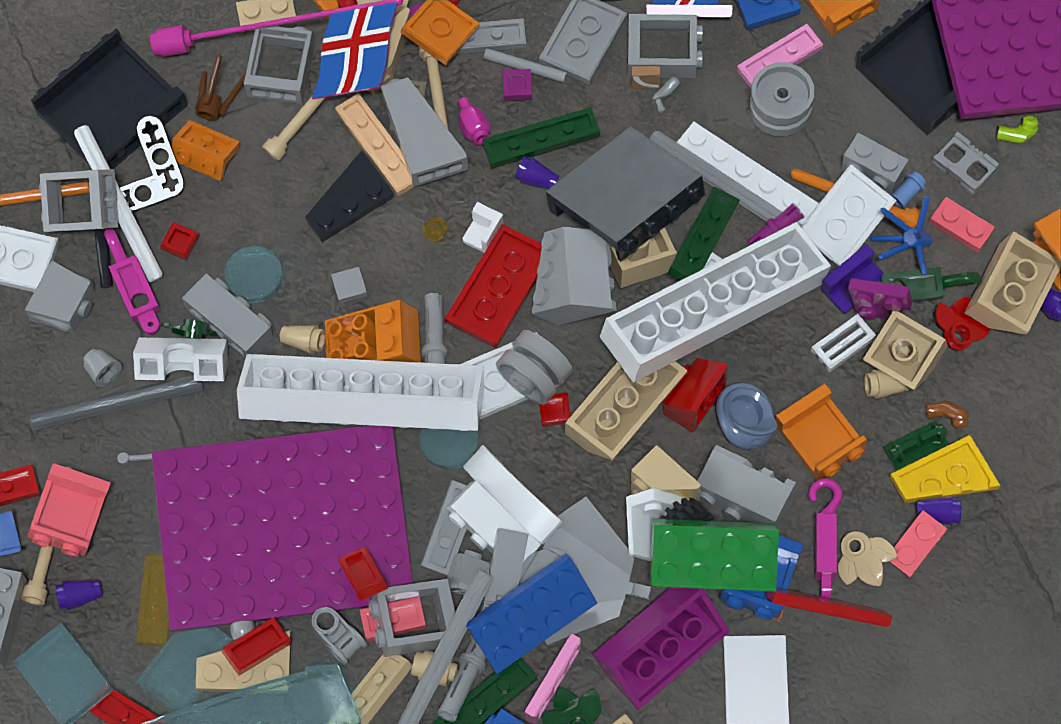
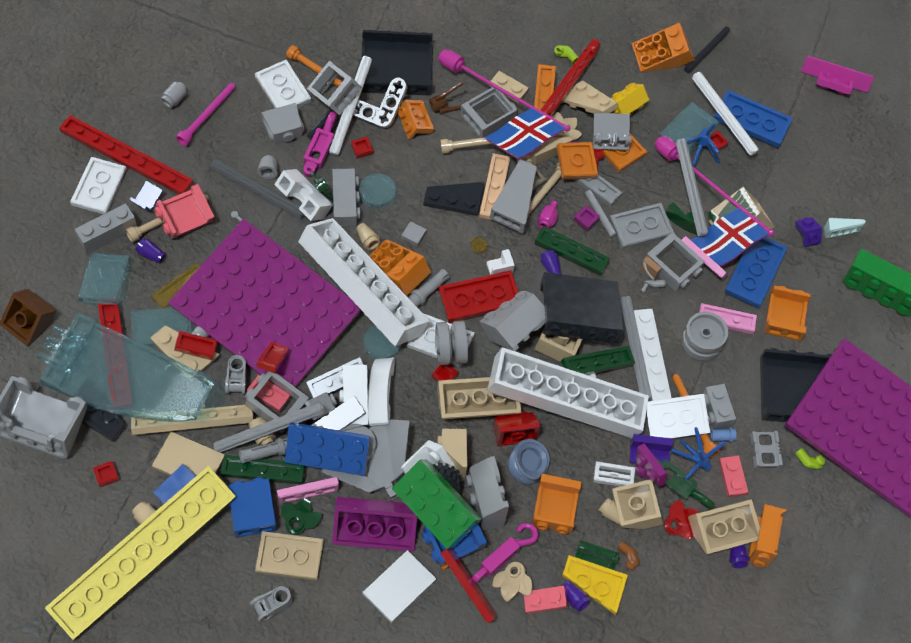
camera: 35 degrees right, 5 degrees down
(784, 219) = (651, 391): magenta pin -> none

